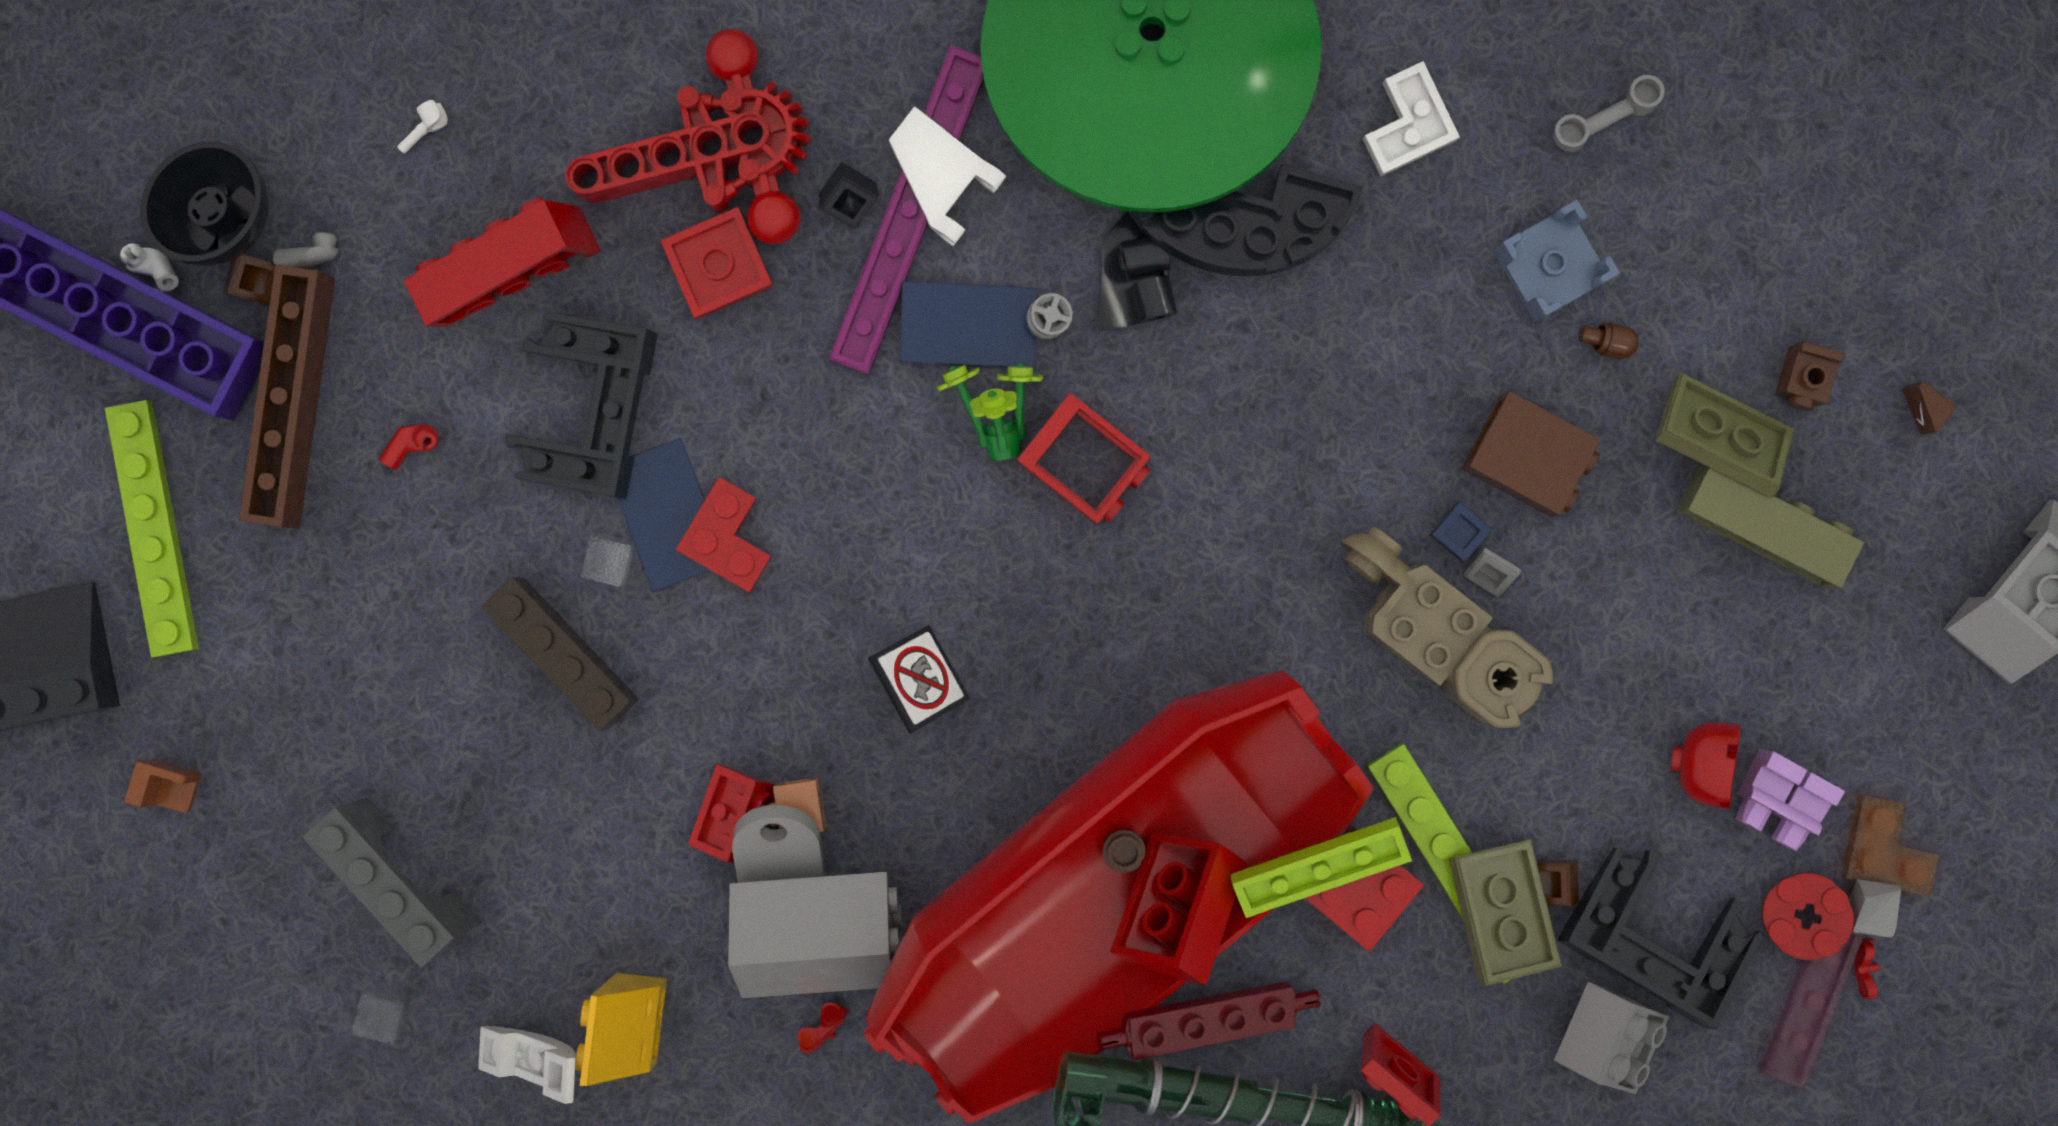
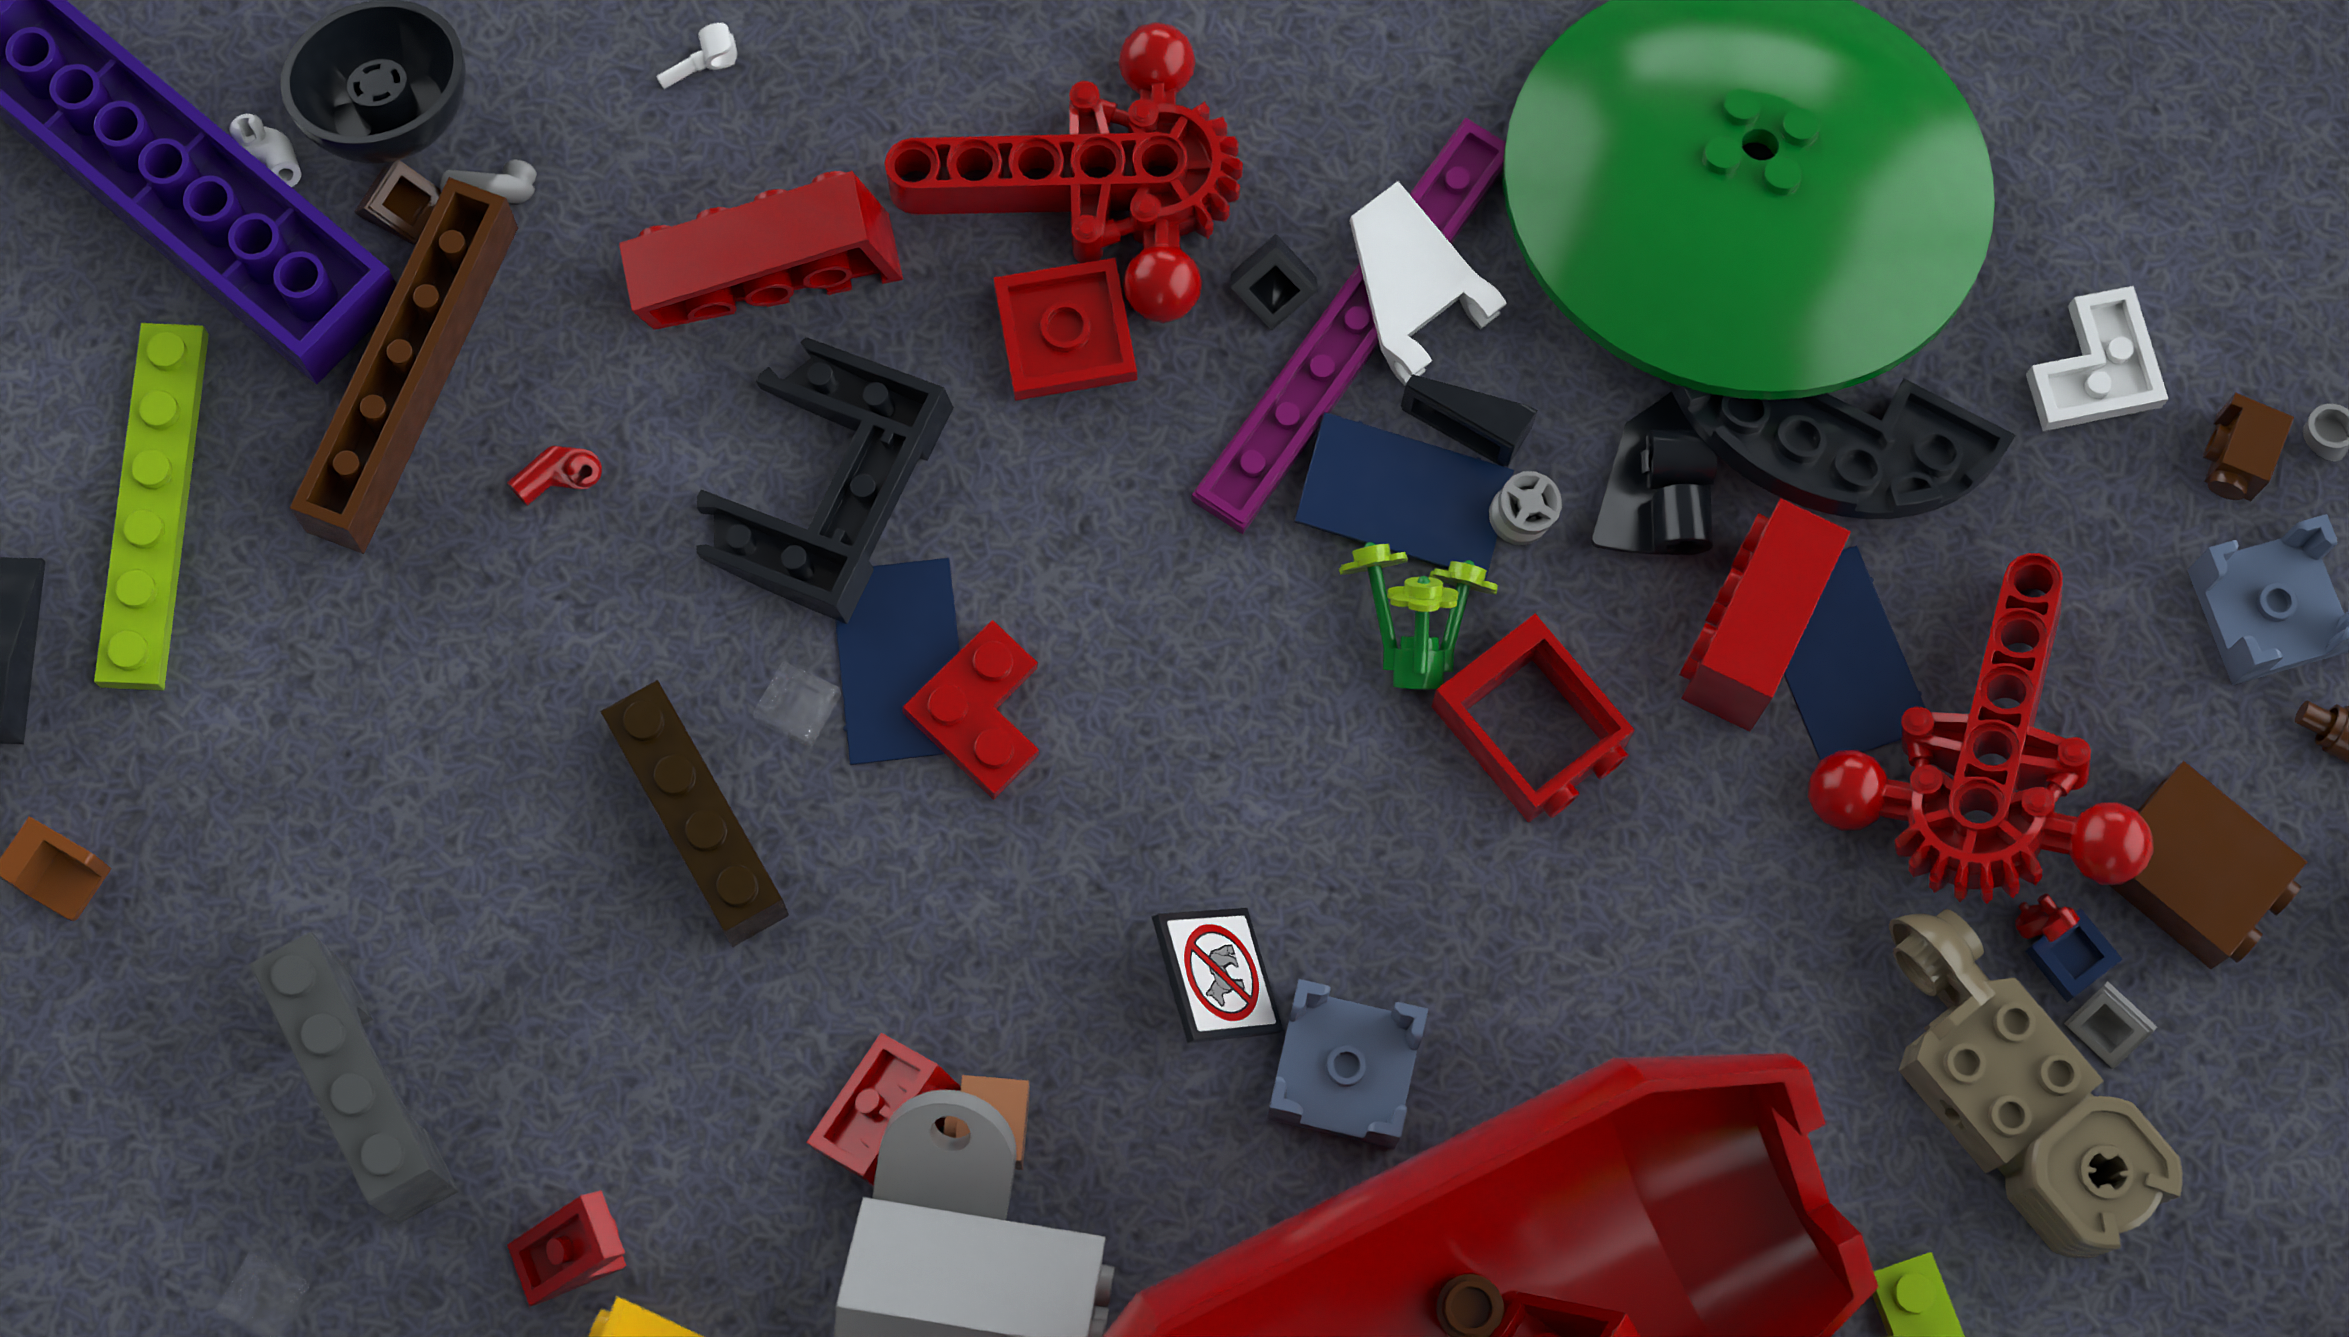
camera: 10 degrees right, 15 degrees down
(558, 946) = (568, 1249): none -> red slope
(1008, 263) = (1474, 419): none -> black slope
(1014, 715) = (1346, 1066): none -> sand blue panel
(1218, 356) = (1761, 613): none -> red brick
(1275, 363) = (1850, 666): none -> dark blue window
(1439, 514) = (2045, 919): none -> red piece
(1467, 464) = (2105, 841): none -> red piece
(1516, 160) = (2245, 447): none -> reddish brown brick

